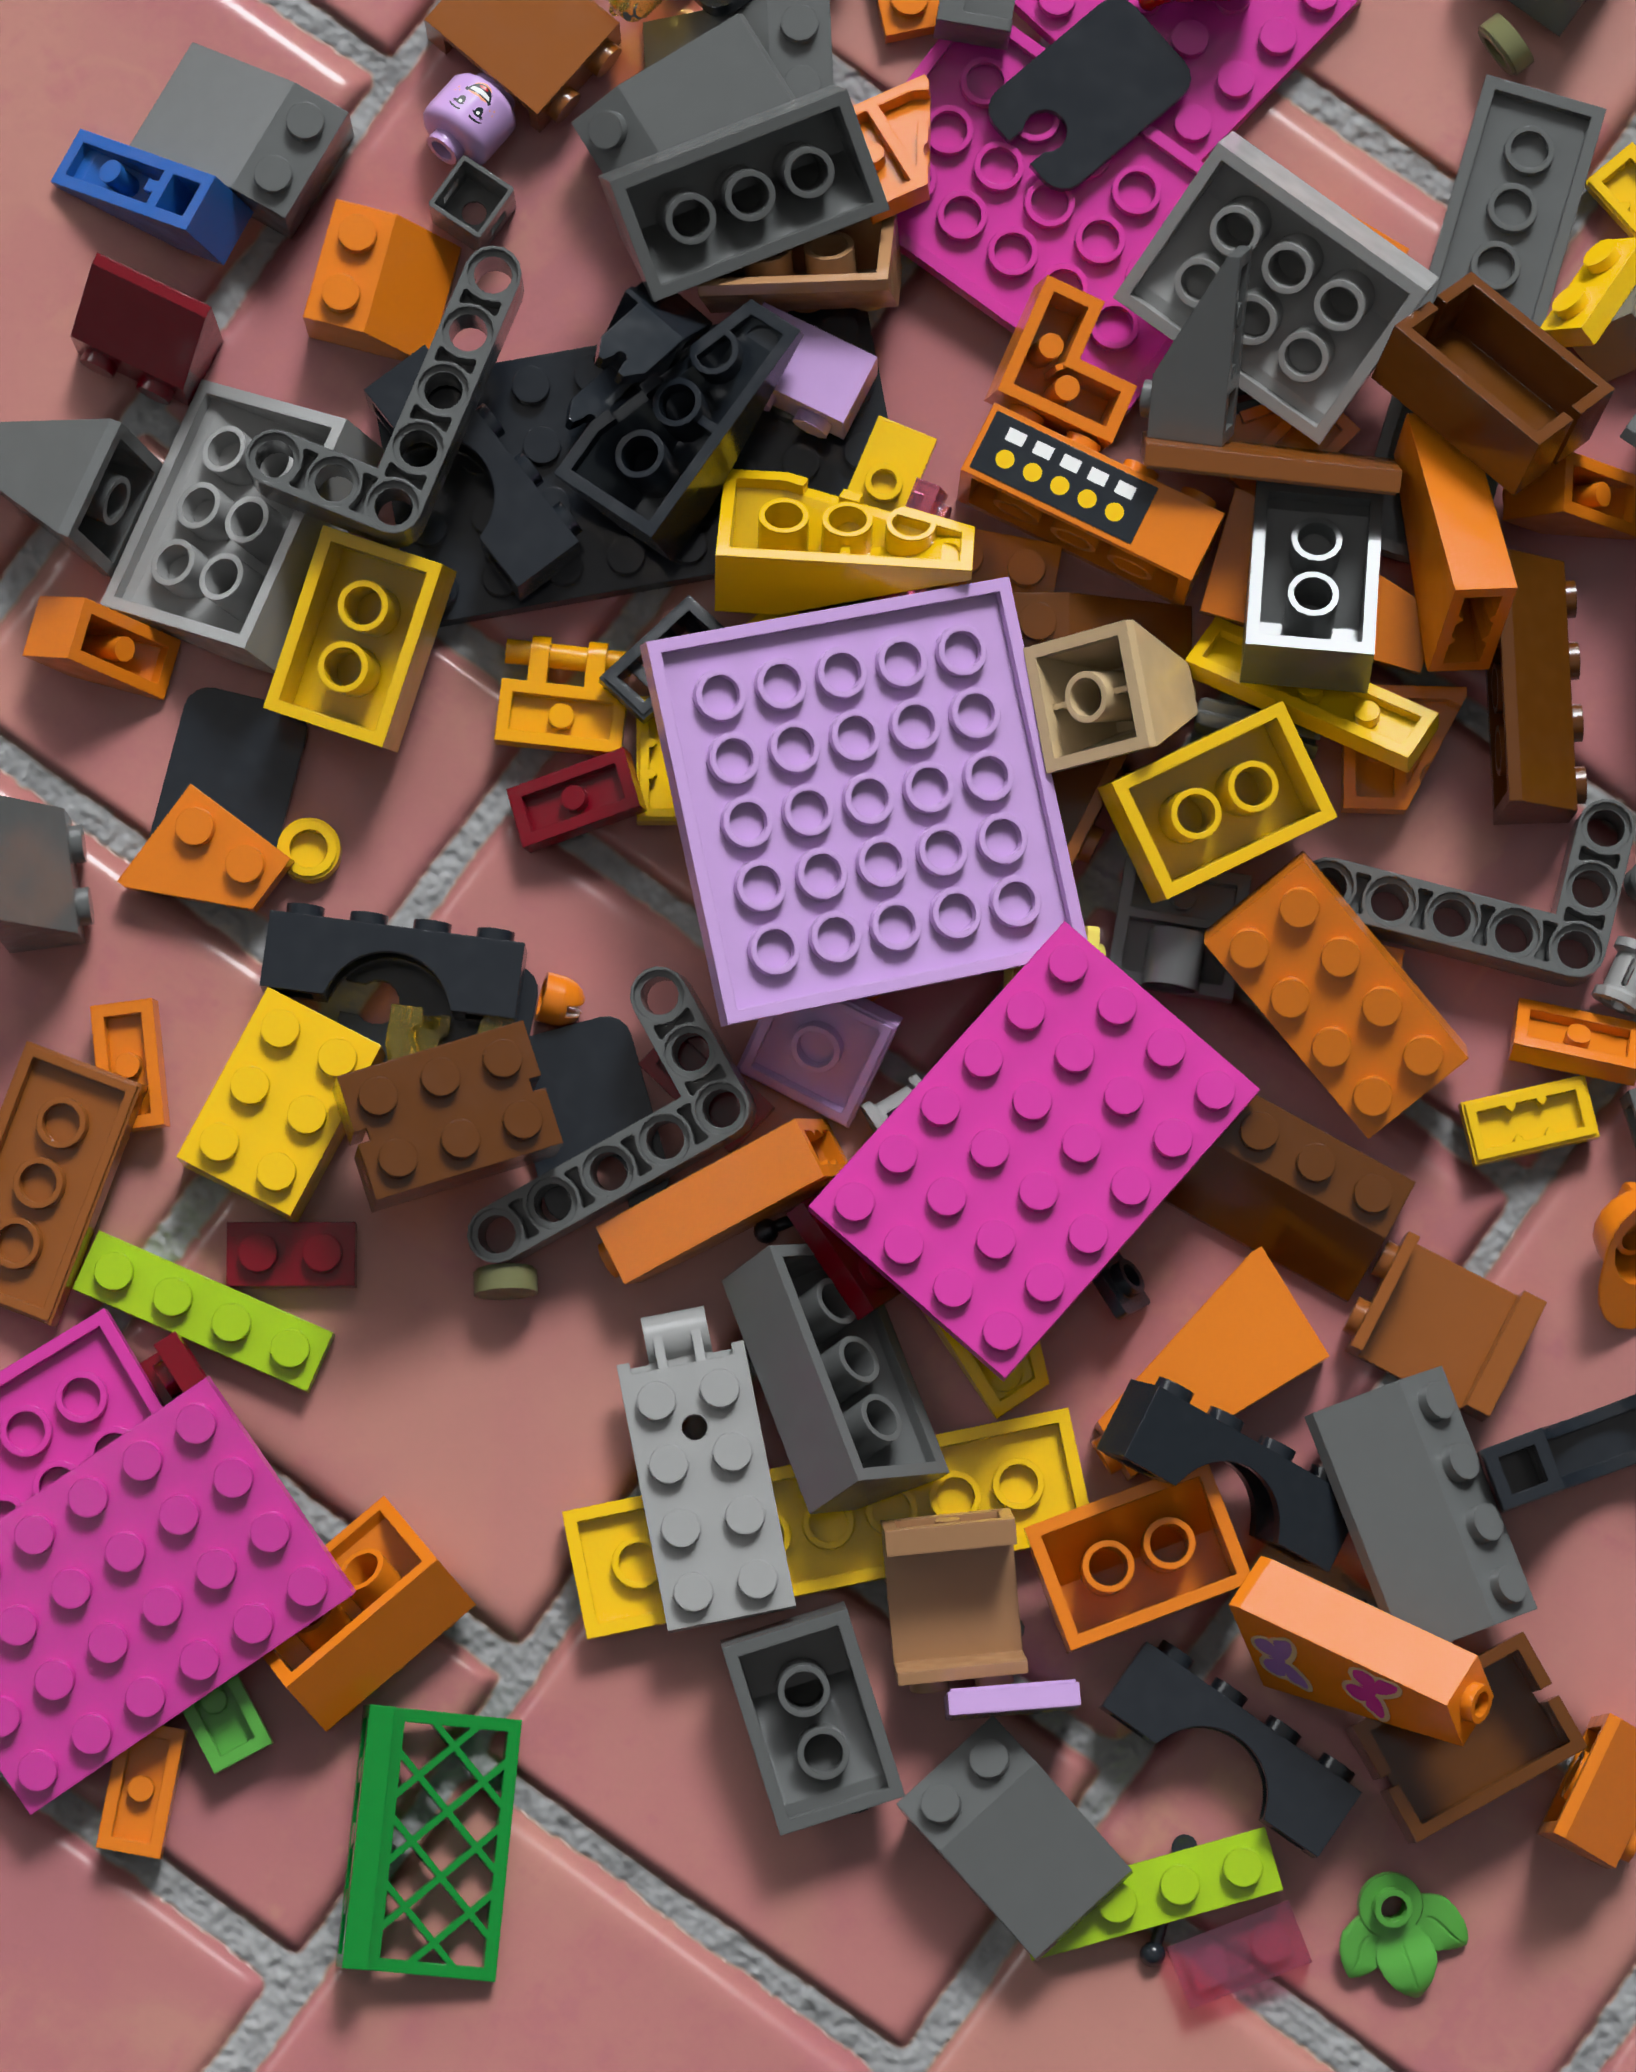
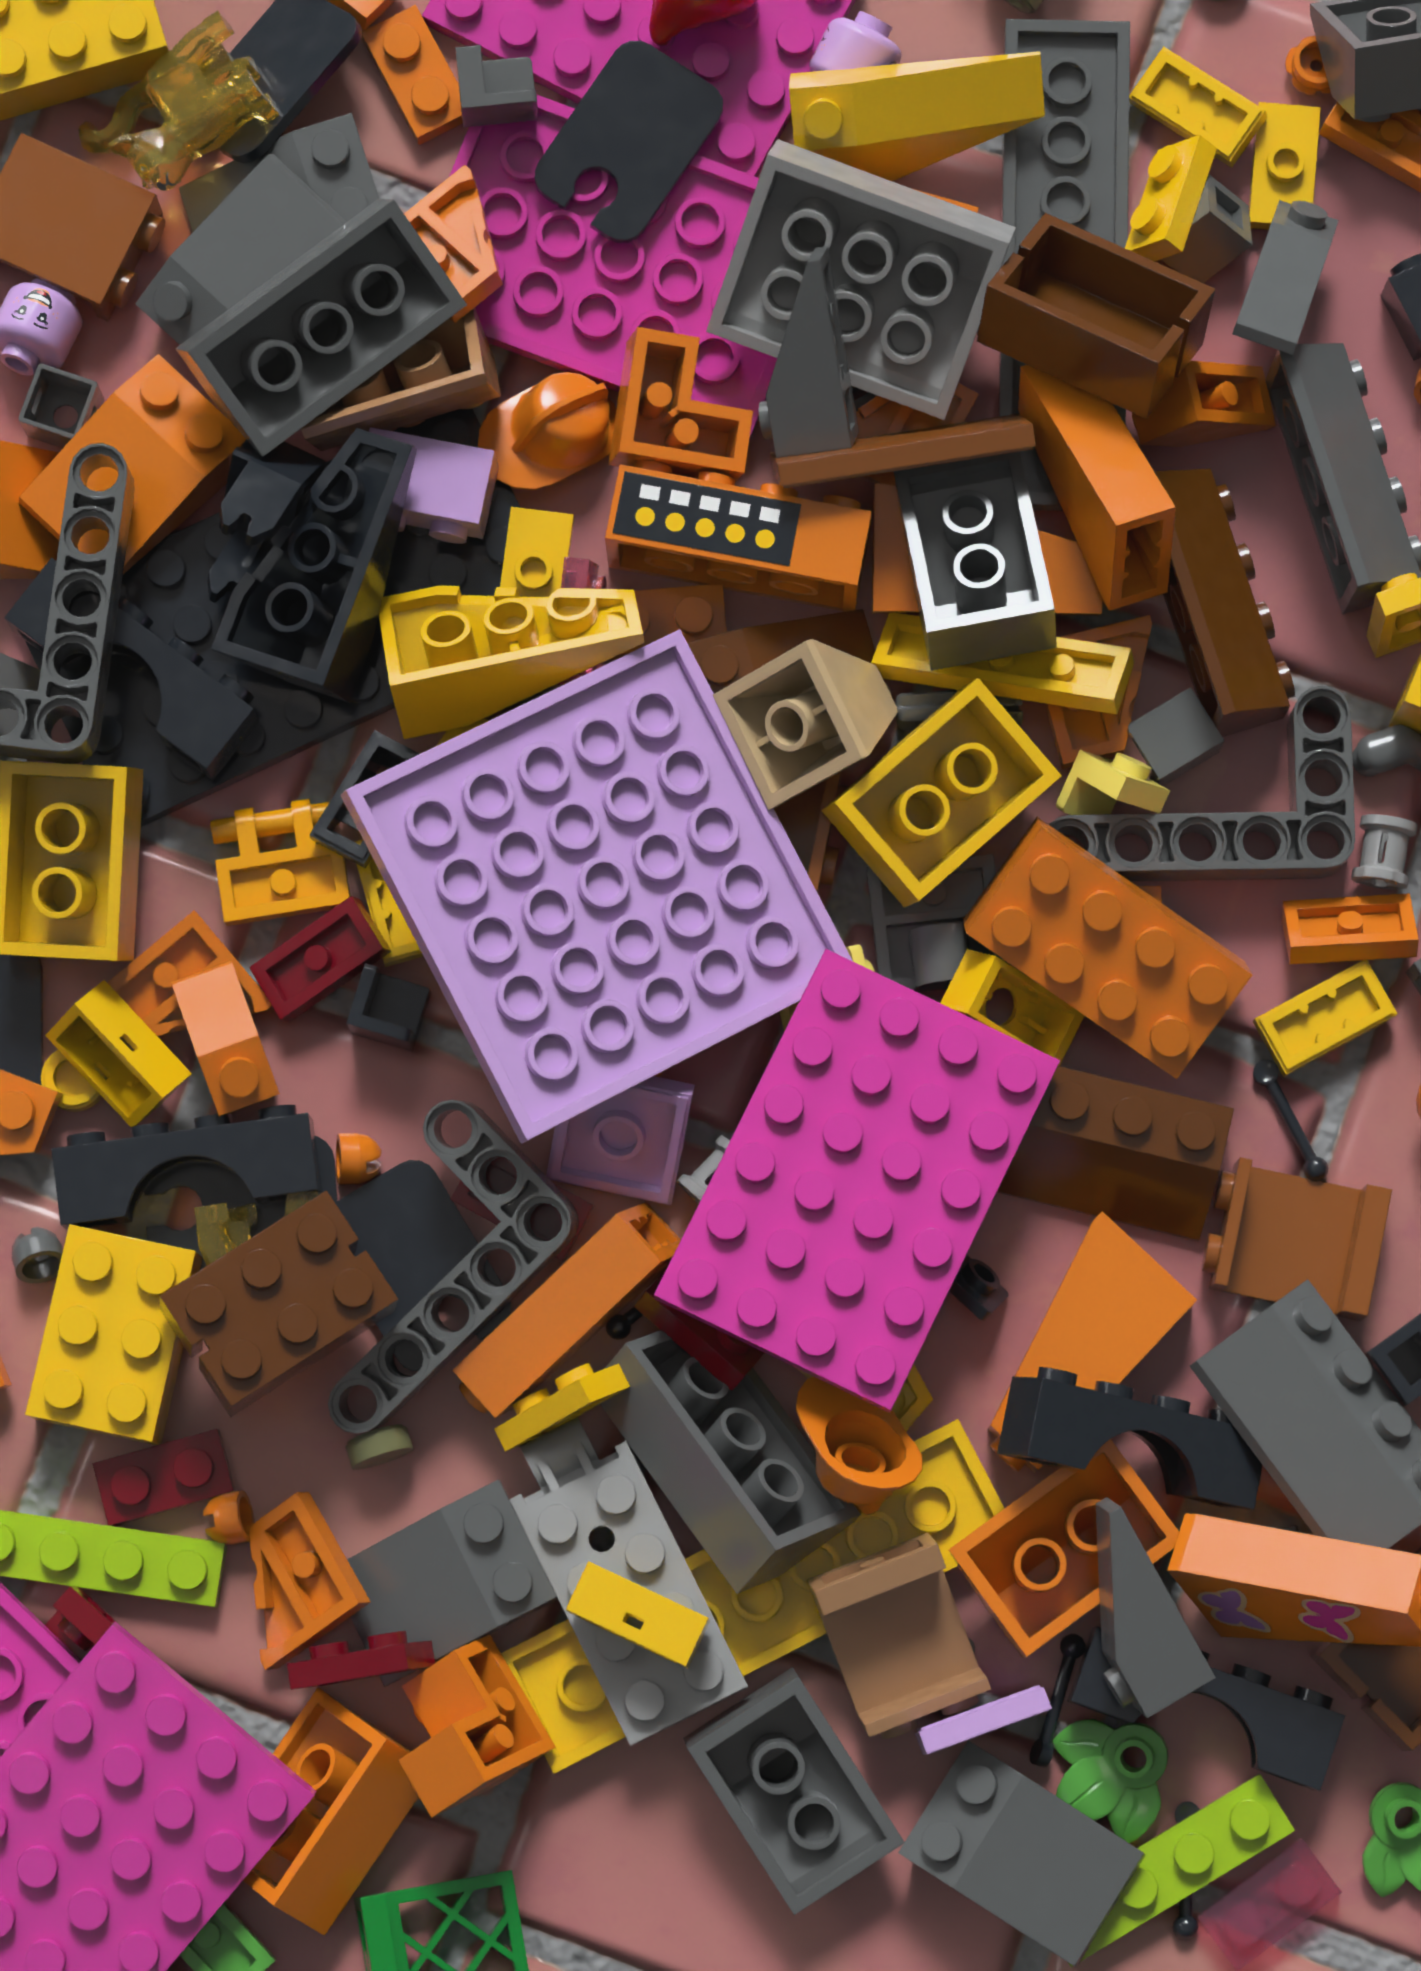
camera: 10 degrees left, 0 degrees up
(216, 1007) = (25, 1251): none -> dark grey hinge
(346, 1311) = (231, 1517): none -> orange hinge
(368, 866) = (136, 1079): none -> yellow piece
(396, 1387) = (300, 1579): none -> orange wing
(407, 1477) = (334, 1664): none -> dark red plate
(437, 788) = (177, 954): none -> orange wing
(465, 850) = (225, 1038): none -> orange slope
(526, 1572) = (476, 1724): none -> orange brick
(531, 1428) = (452, 1576): none -> dark grey slope
(568, 266) = (172, 445): none -> orange slope
(628, 866) = (387, 1009): none -> black panel
(687, 1485) = (610, 1600): none -> yellow piece
(709, 1282) = (578, 1393): none -> yellow plate
(936, 353) = (549, 431): none -> orange piece
(964, 1406) = (858, 1447): none -> orange piece
(1112, 1794) = (1104, 1783): none -> bright green plate
(1117, 1657) = (1042, 1751): none -> black hinge
(1188, 1652) = (1140, 1625): none -> dark grey slope
(1252, 1042) = (1037, 1014): none -> yellow piece
(1329, 75) = (855, 45): none -> lavender head
(1372, 141) = (913, 113): none -> yellow wedge
(1372, 835) = (1099, 782): none -> light yellow bracket
(1457, 1160) = (1266, 1074): none -> black hinge
(1458, 812) = (1175, 737): none -> dark grey panel

